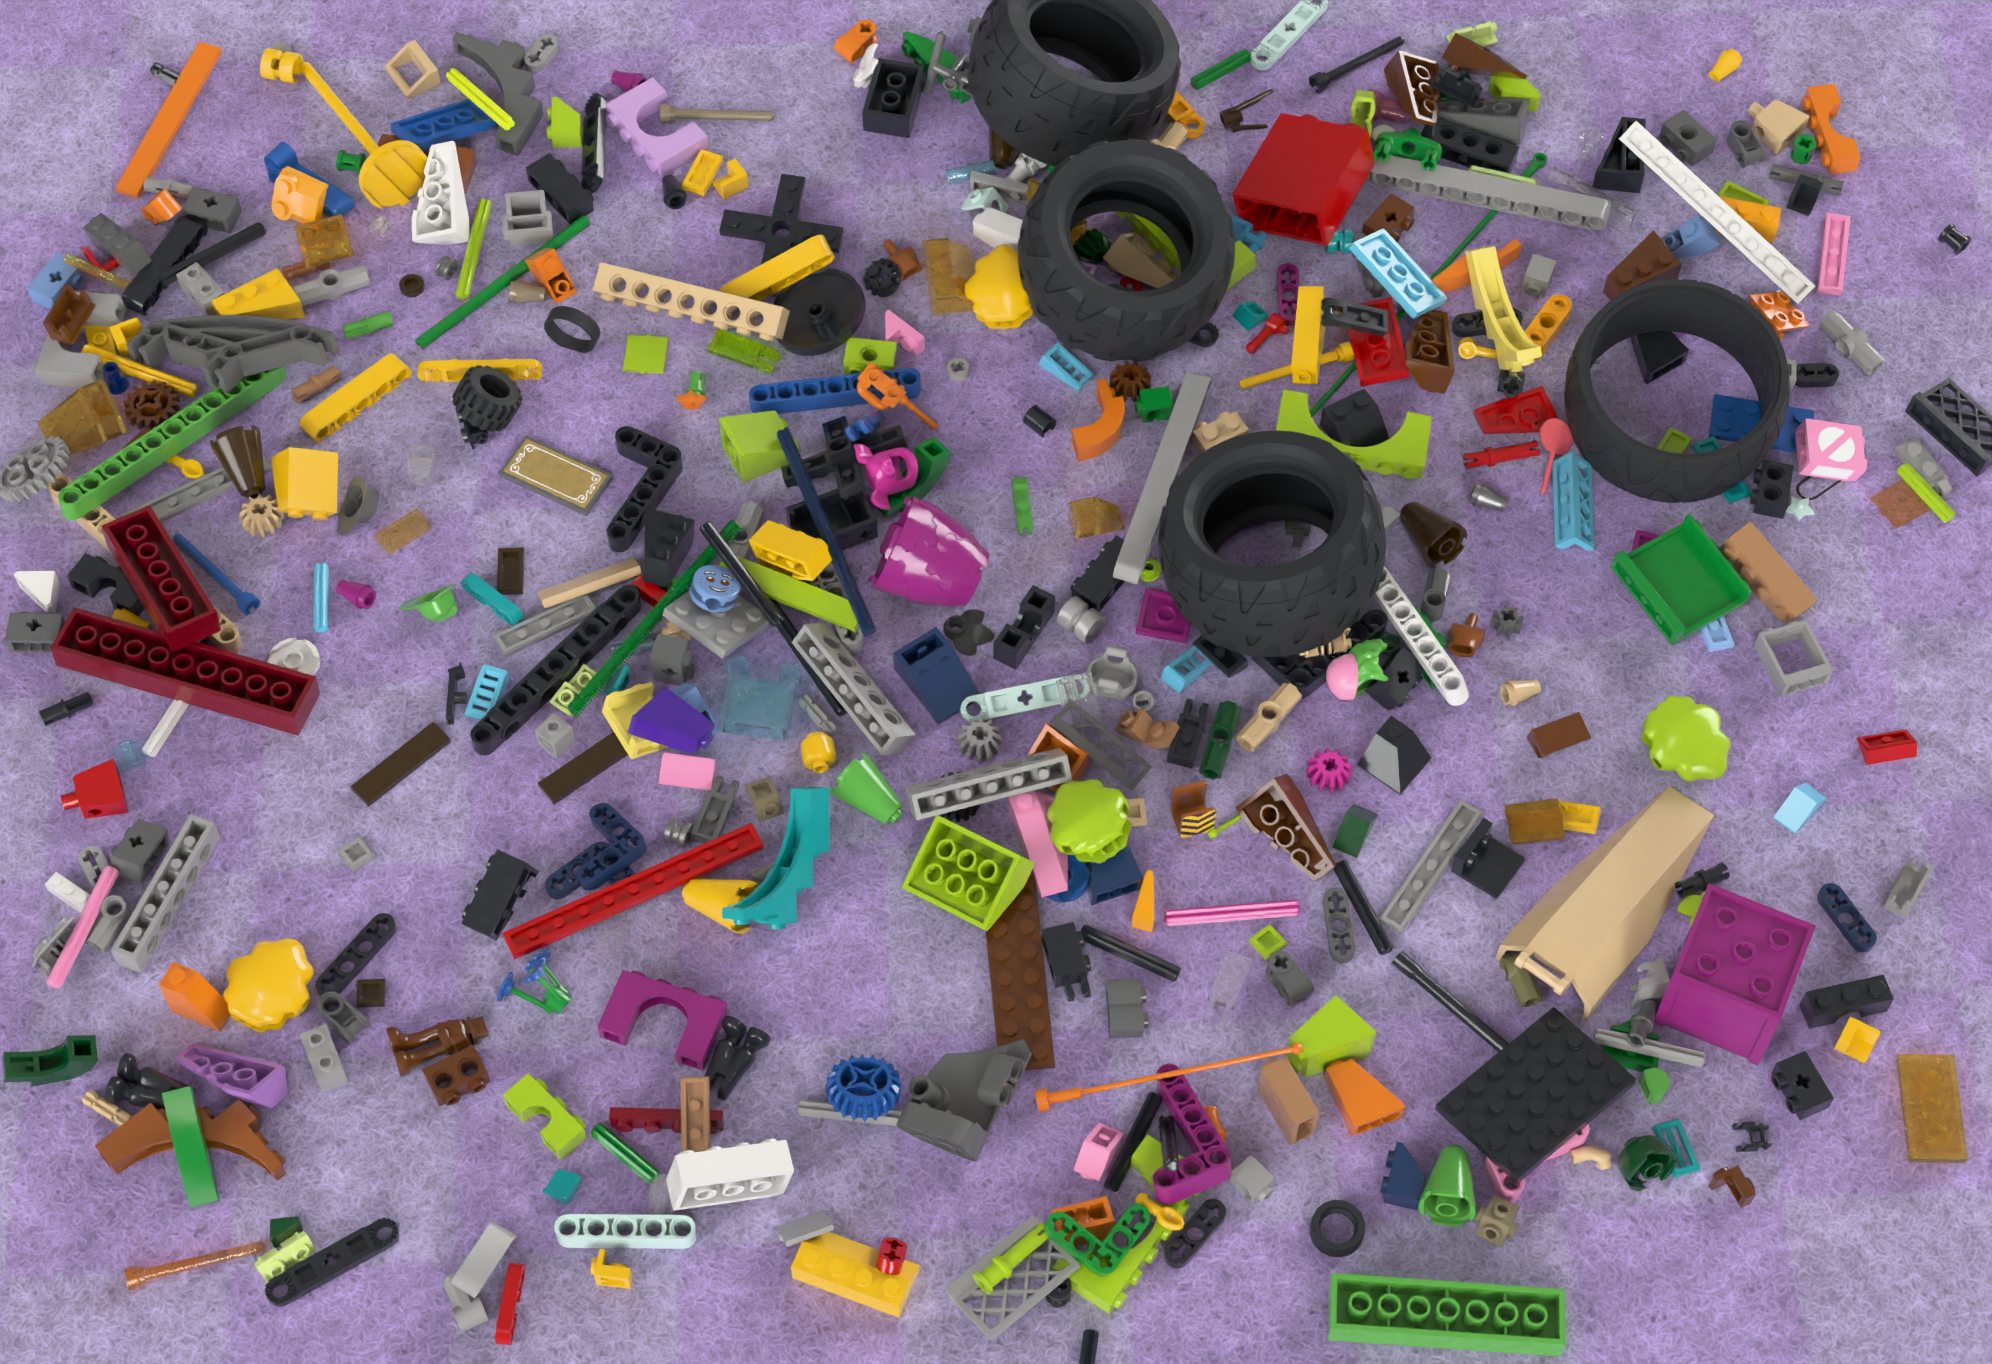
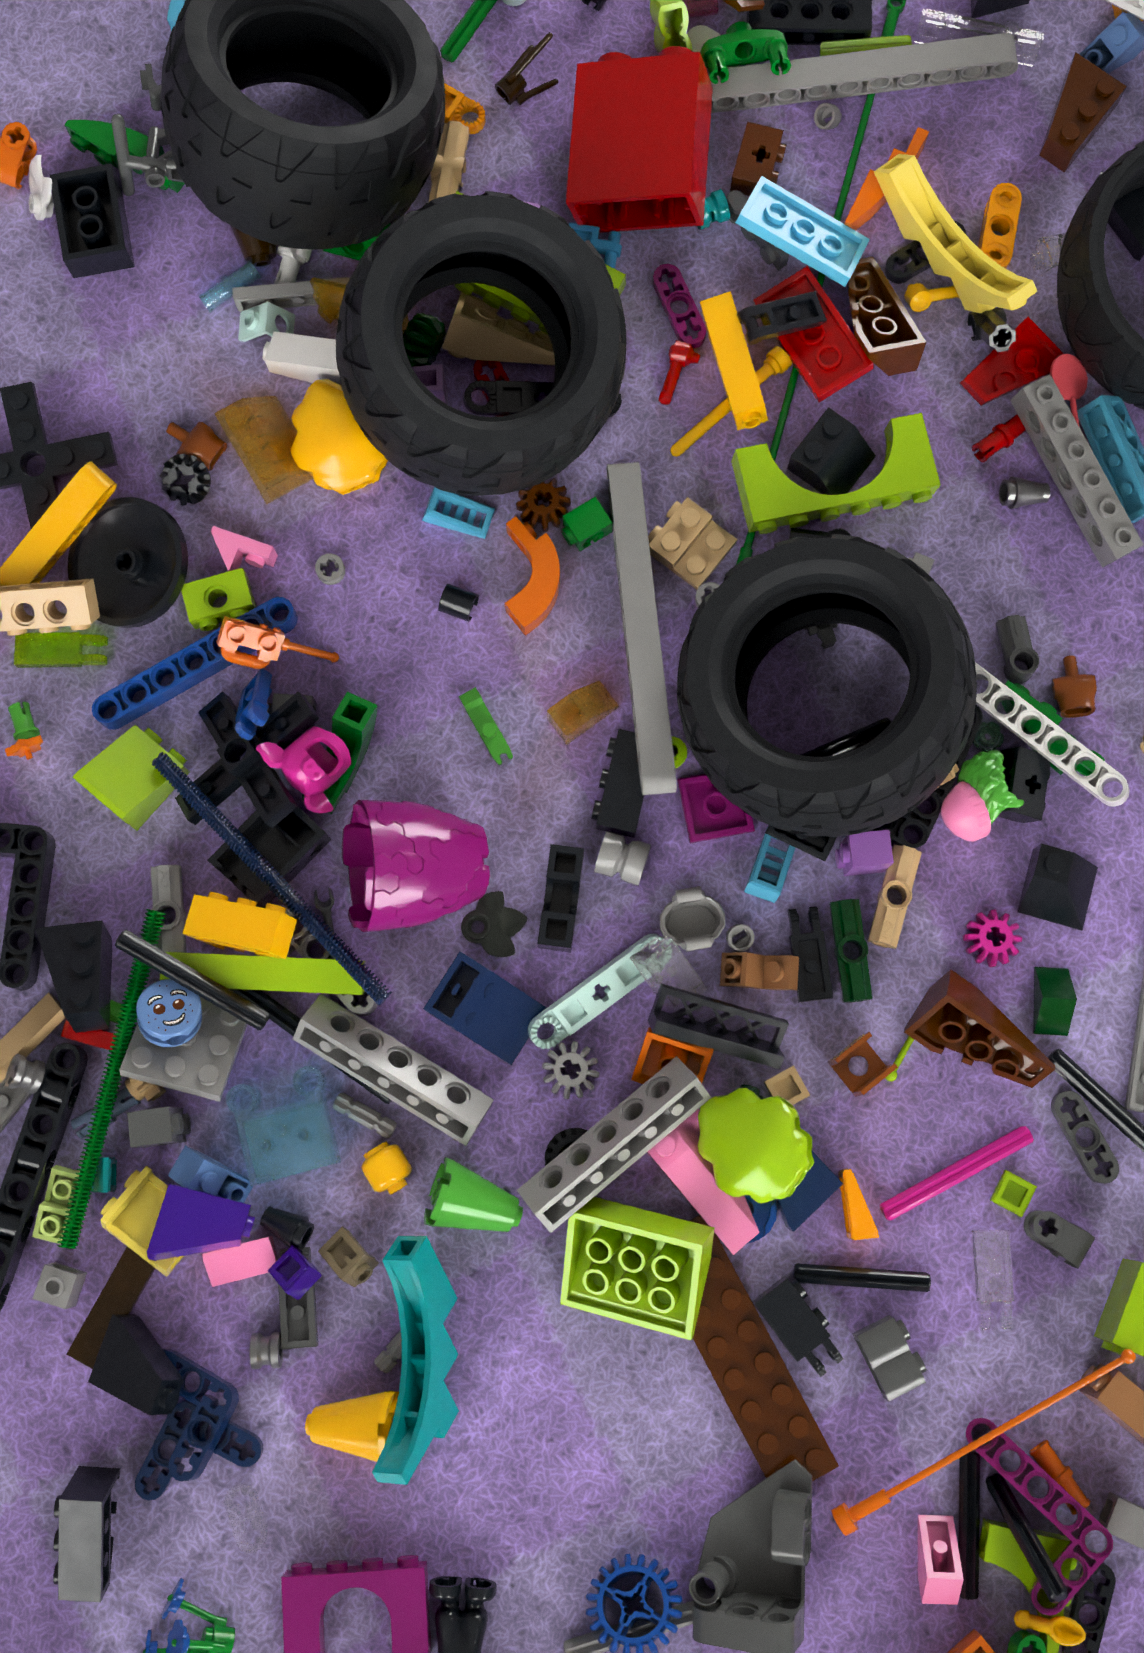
camera: 20 degrees left, 20 degrees up
(583, 802) = (136, 1367): none -> black slope
(595, 594) = (25, 1074): none -> flat silver wheel
(632, 891) = (245, 1464): red plate -> none
(723, 789) = (294, 1273): none -> dark purple slope
(731, 763) = (287, 1227): none -> black cone
(1250, 315) = (645, 352): teal slope -> none
(1257, 675) = (865, 853): none -> medium lavender brick
(1432, 533) = (980, 568): dark brown cone -> none
(1456, 210) = (825, 111): none -> light grey hinge
(1506, 621) = (1105, 654): dark grey gear -> none
(1530, 493) = (1076, 471): none -> light grey brick
(1538, 275) = (961, 164): light grey brick -> none

